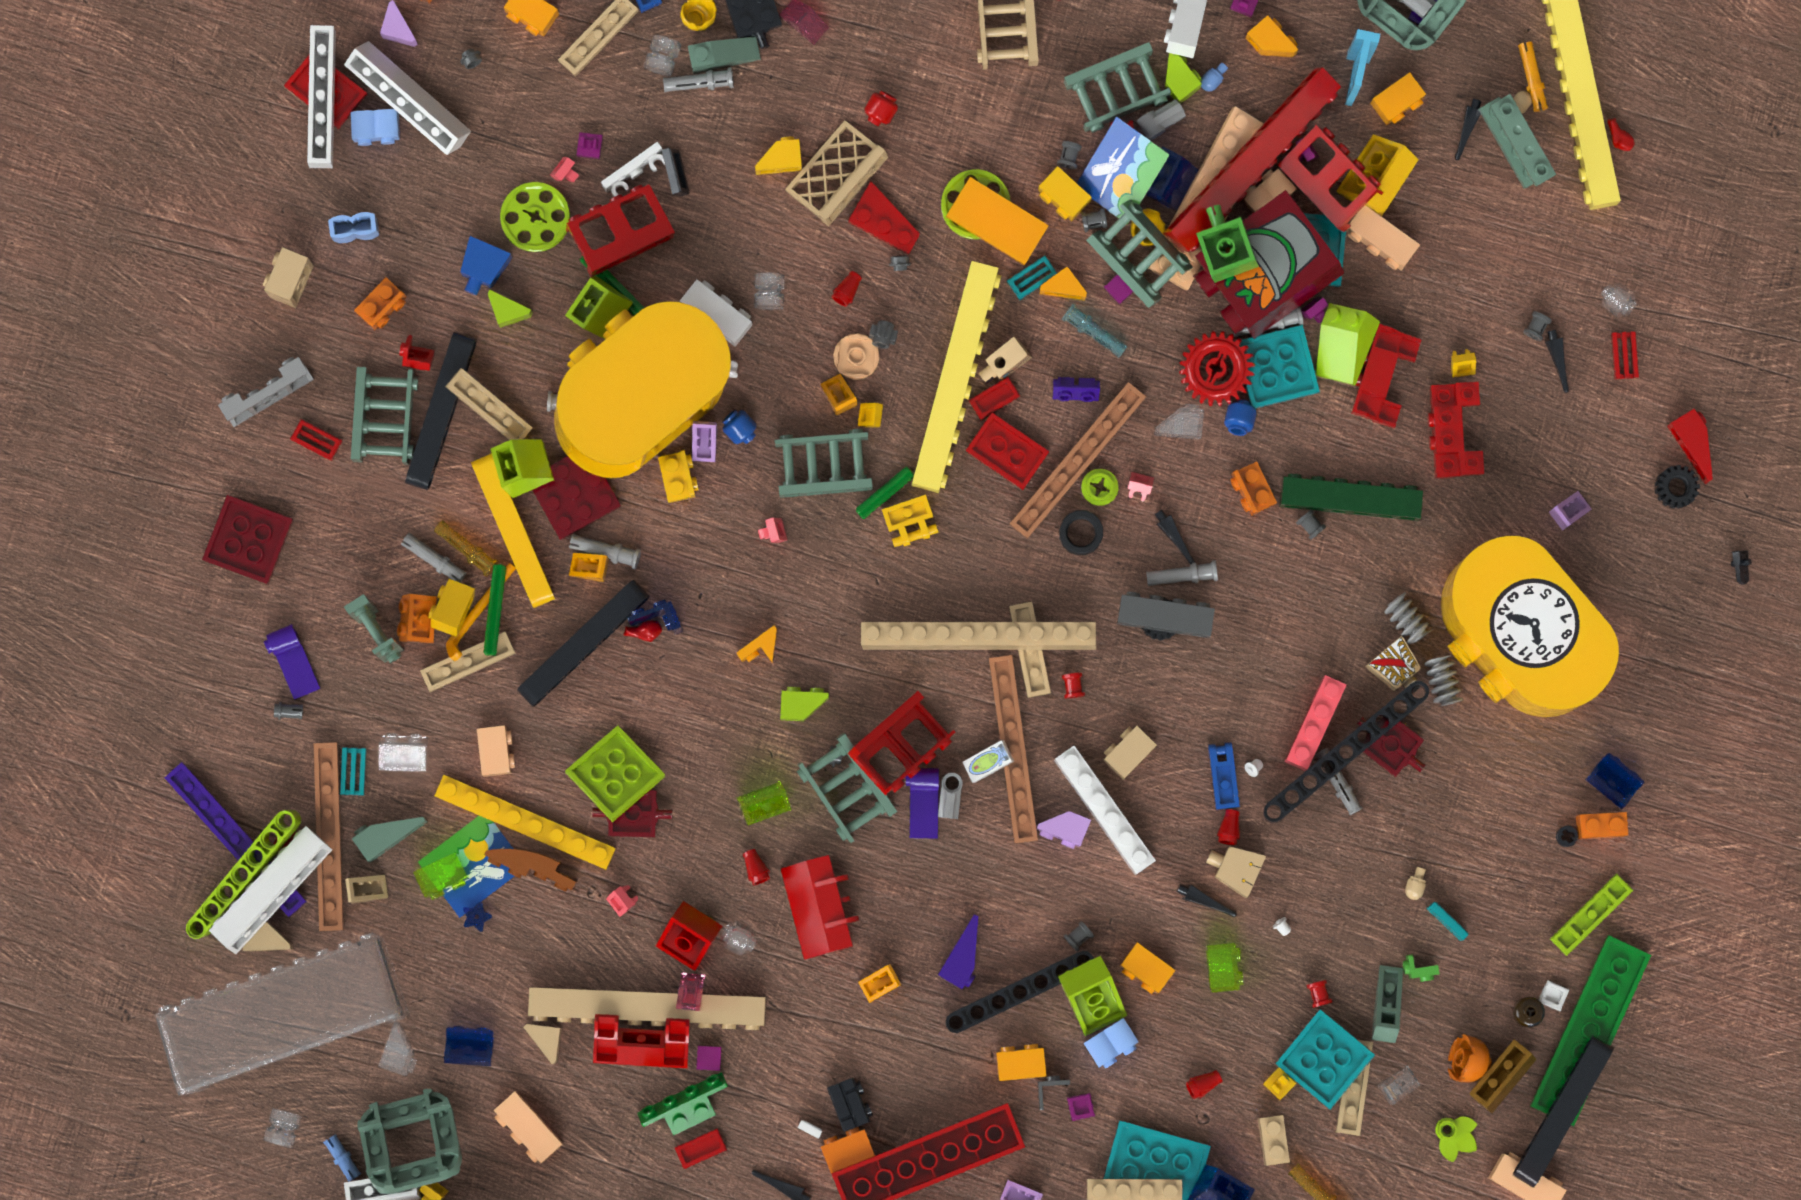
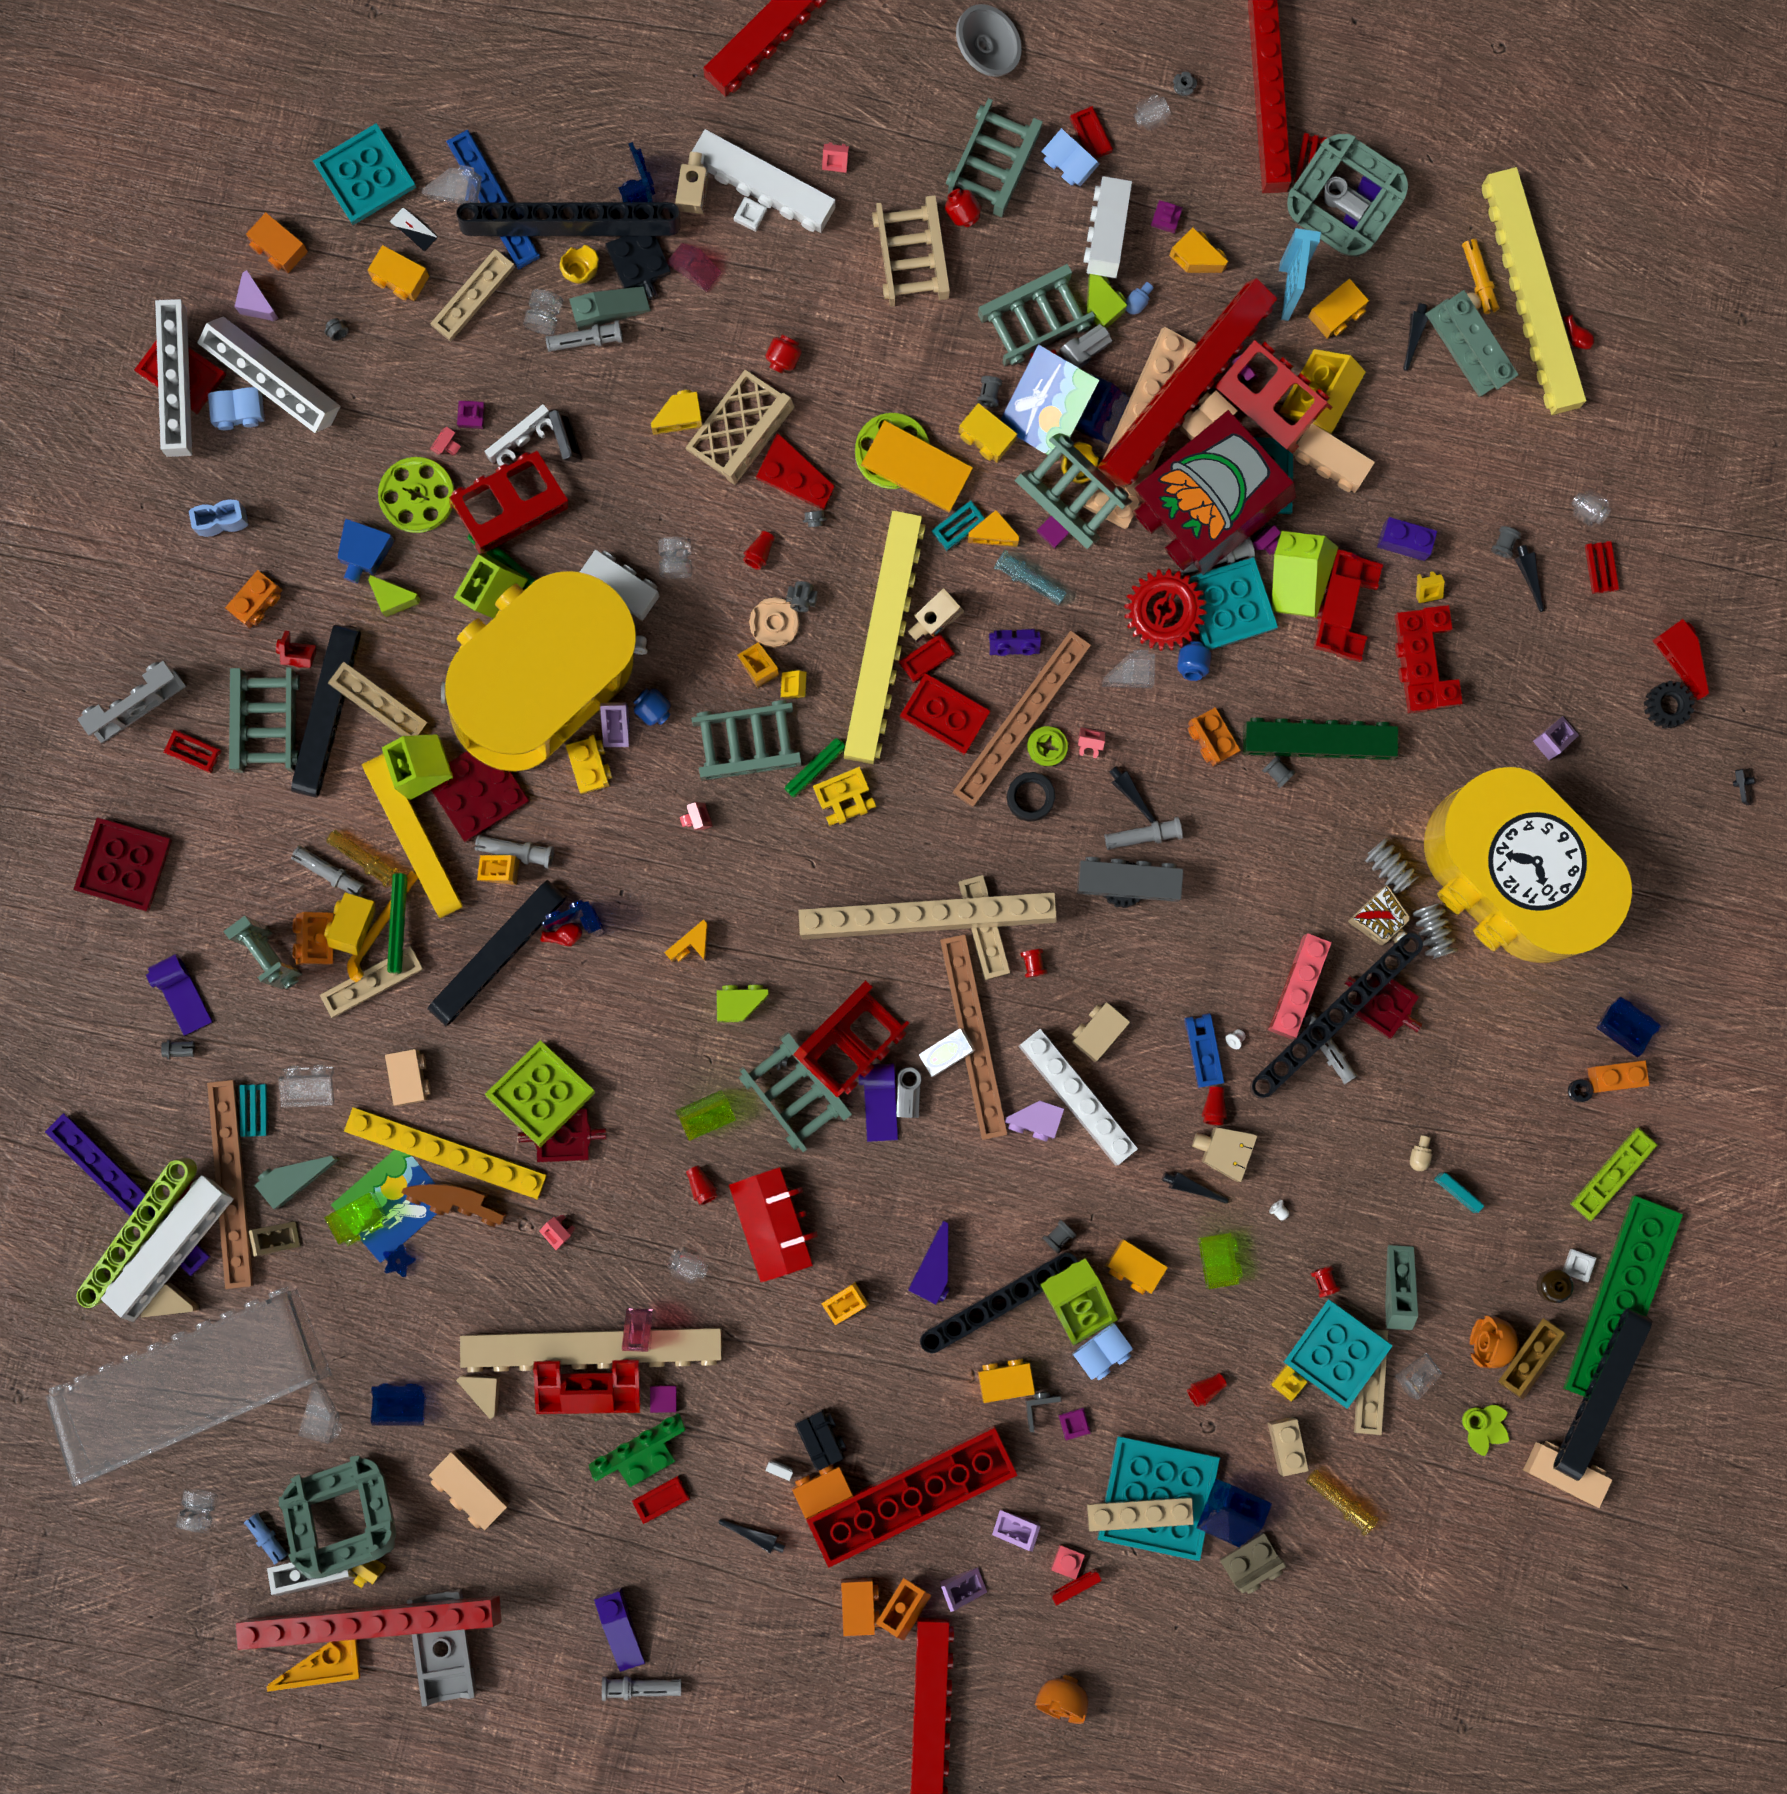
camera: 10 degrees left, 0 degrees up
(288, 277) = (149, 576): tan brick -> none
(689, 935) = (632, 1265): red slope -> none
(1094, 220) = (1021, 459): dark grey bush -> none
(1224, 235) = (1164, 462): bright green brick -> none
(1424, 973) = (1438, 1251): bright green bracket -> none
(1445, 317) = (1407, 539): none -> dark purple brick

